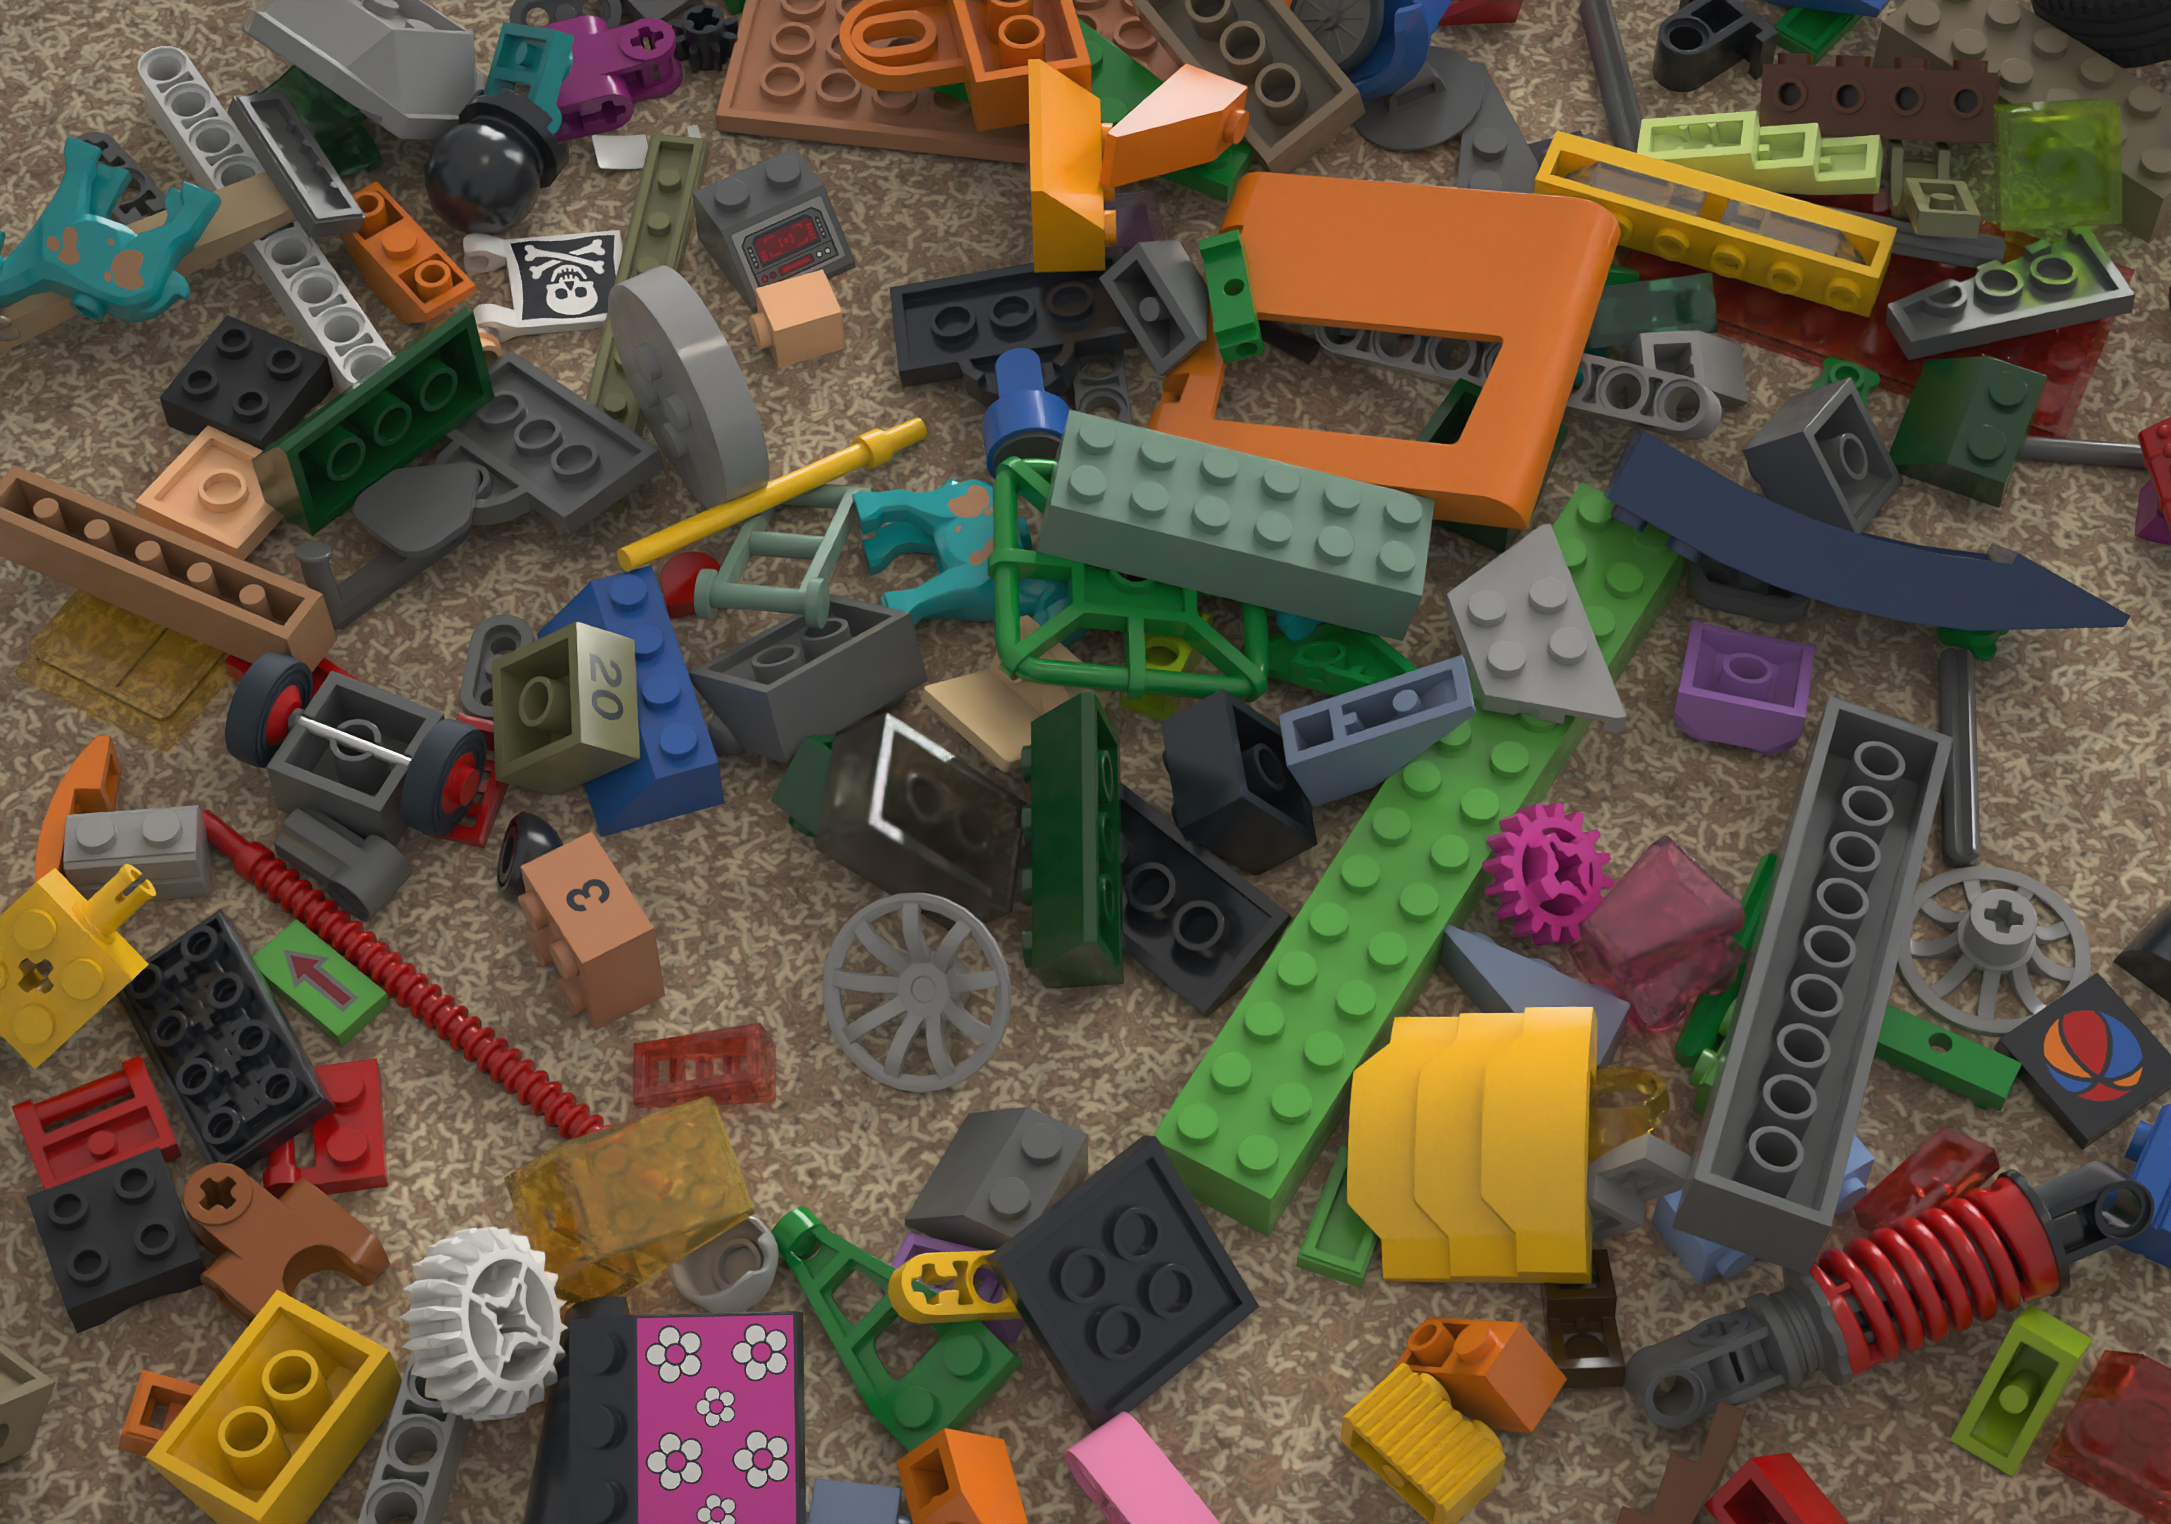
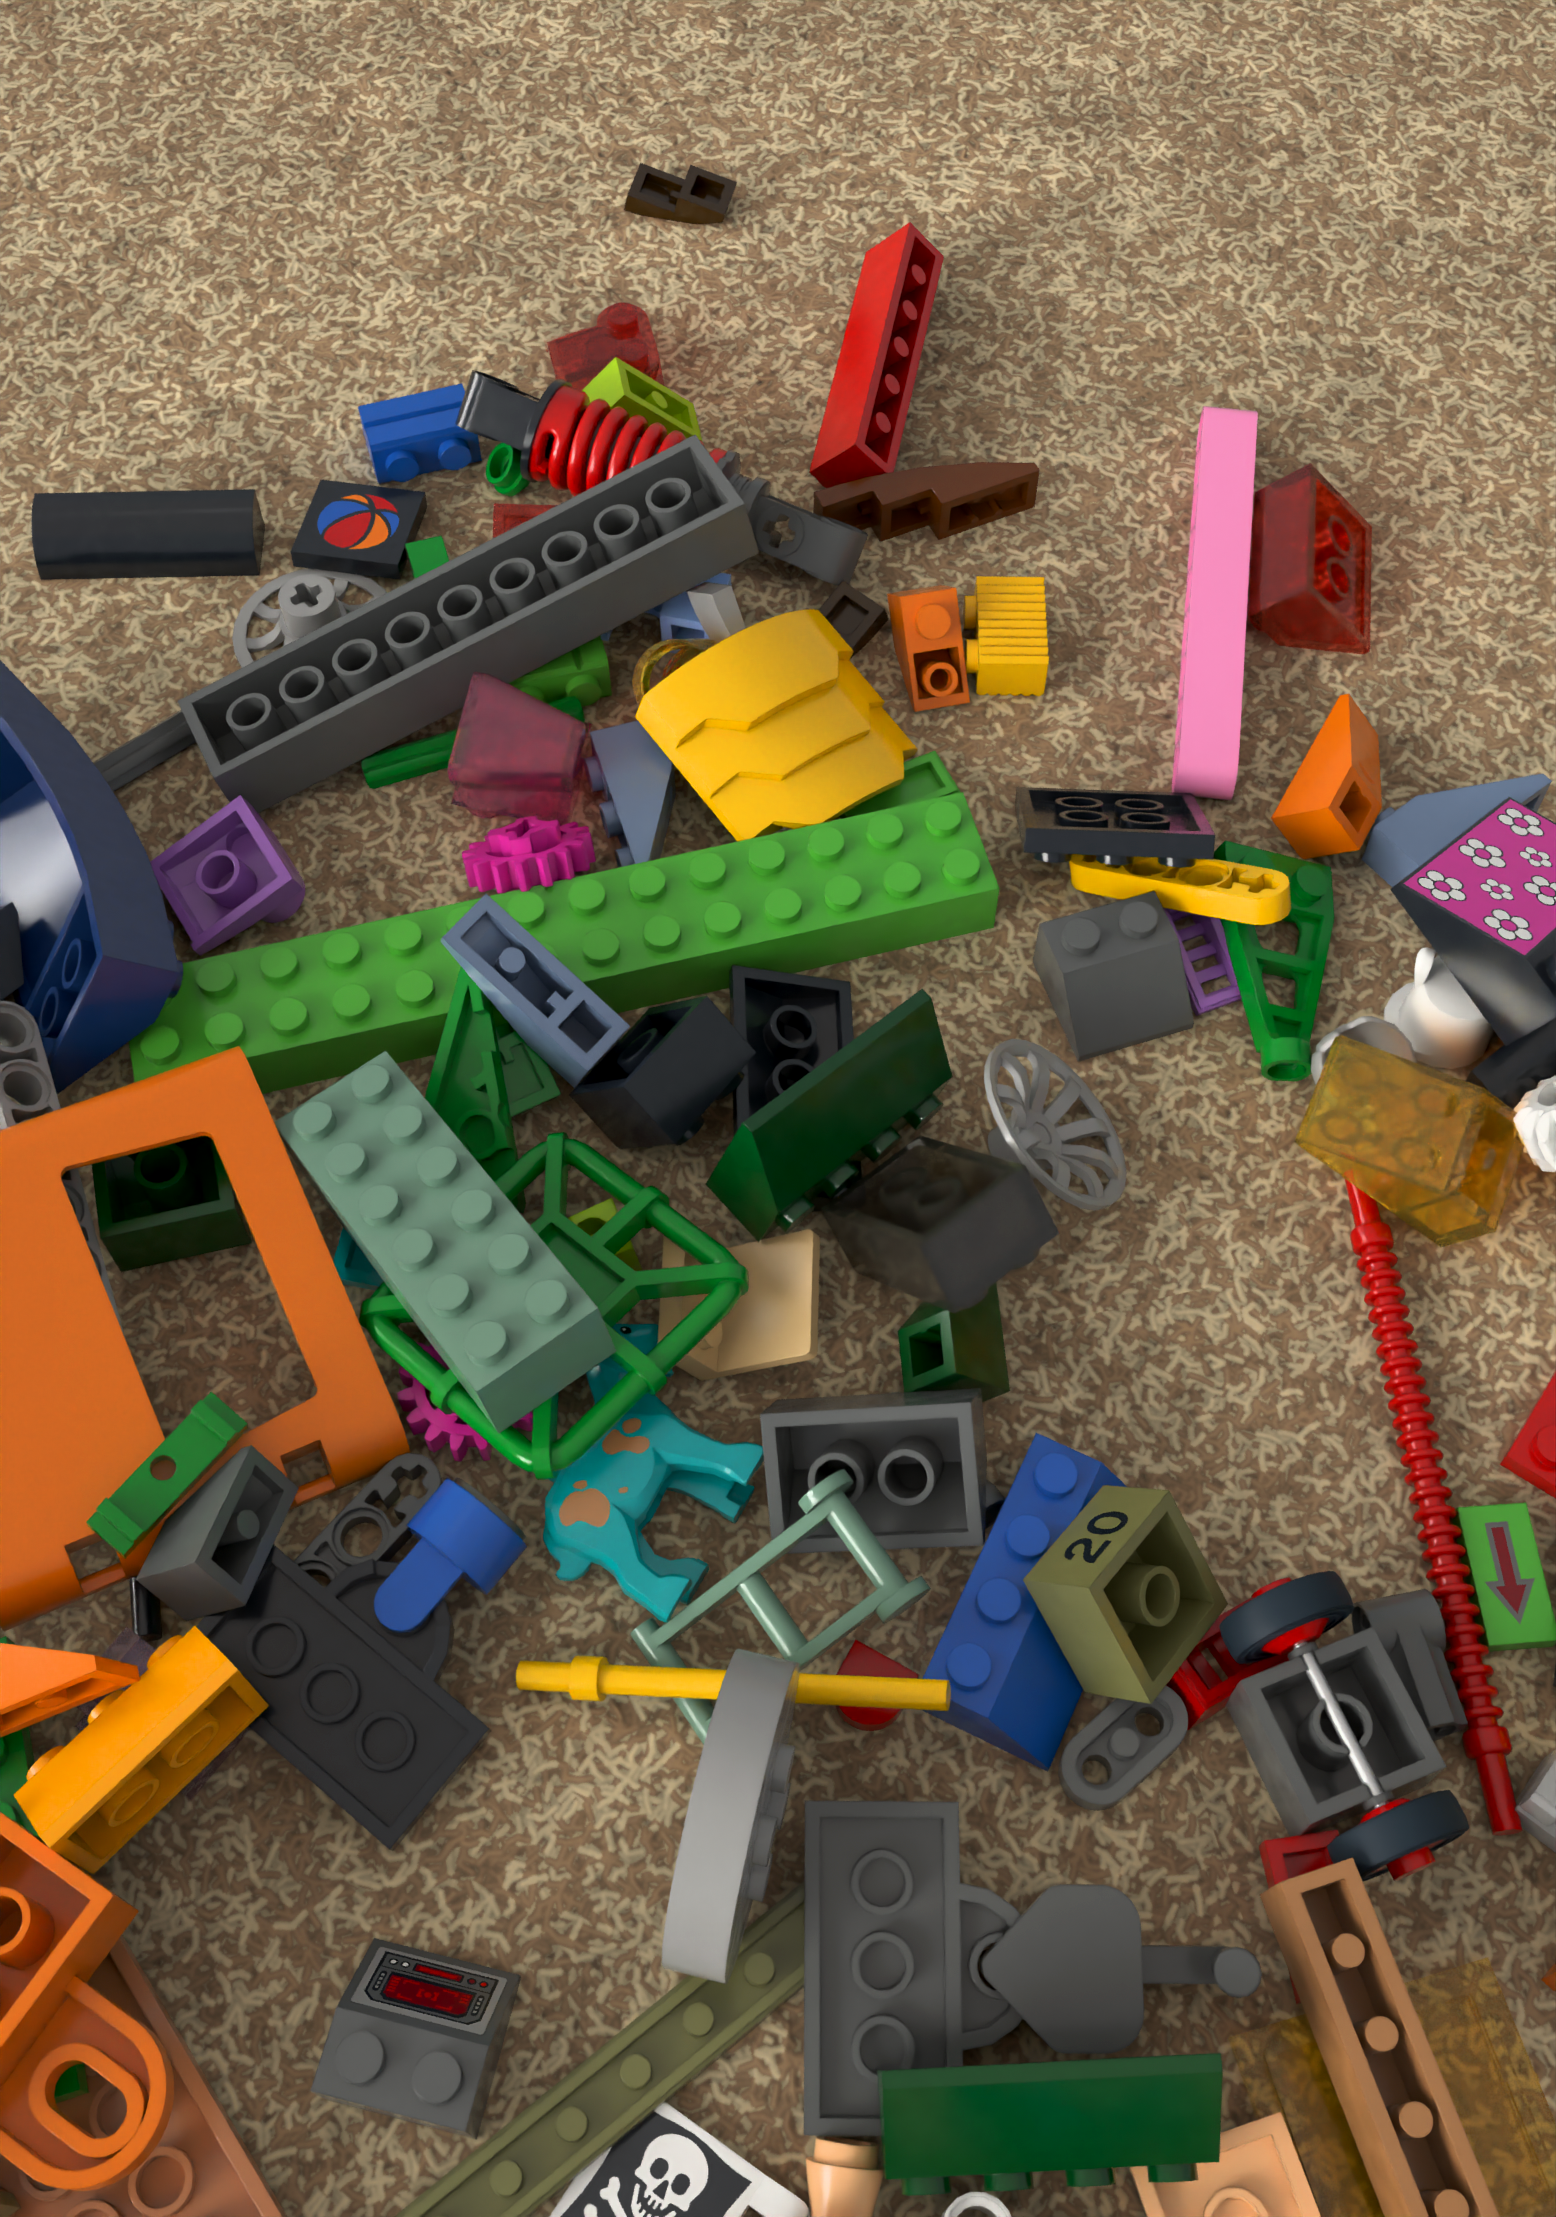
camera: 135 degrees left, 5 degrees up
(523, 841) = (1246, 1521): black brick -> none
(591, 932) = (1266, 1380): nougat brick -> none
(732, 1087) = (1232, 1255): clear red slope -> none
(798, 319) = (506, 1895): light nougat brick -> none
(1532, 638) = (340, 979): light grey wing -> none

